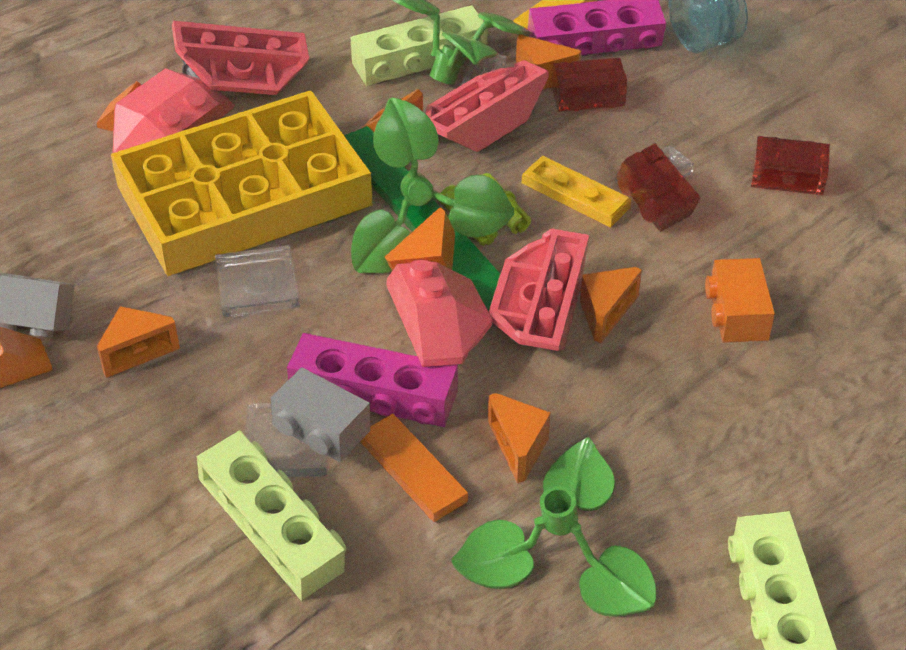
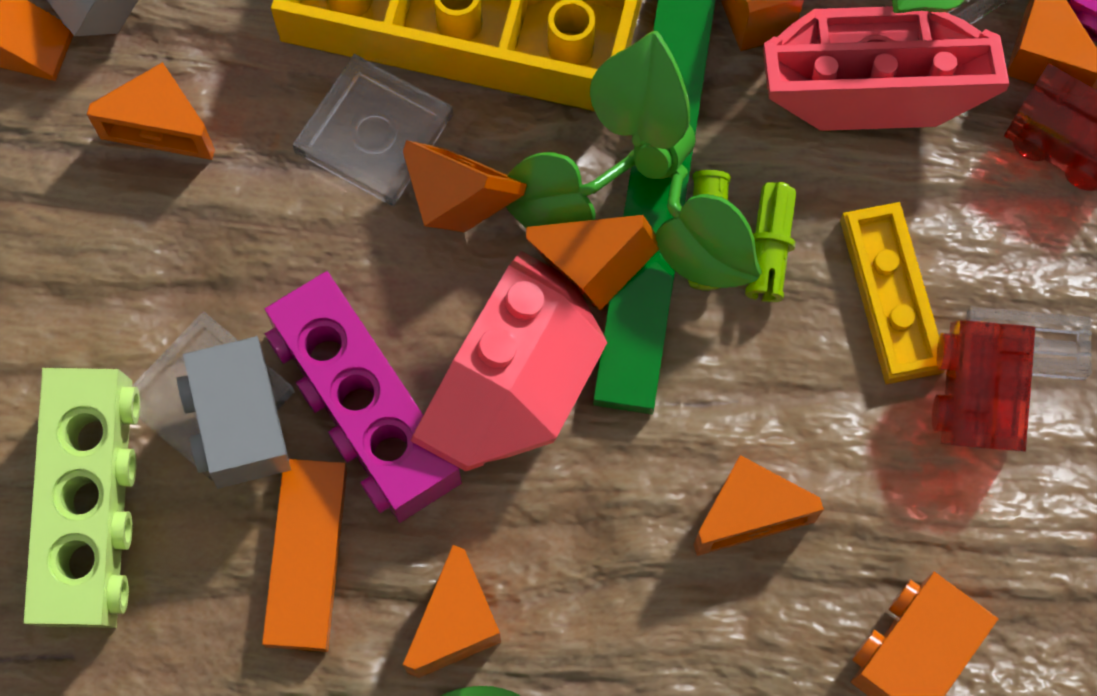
camera: 40 degrees right, 25 degrees up
(333, 264) = (456, 190): none -> orange slope
(541, 290) = (660, 441): coral wedge -> none

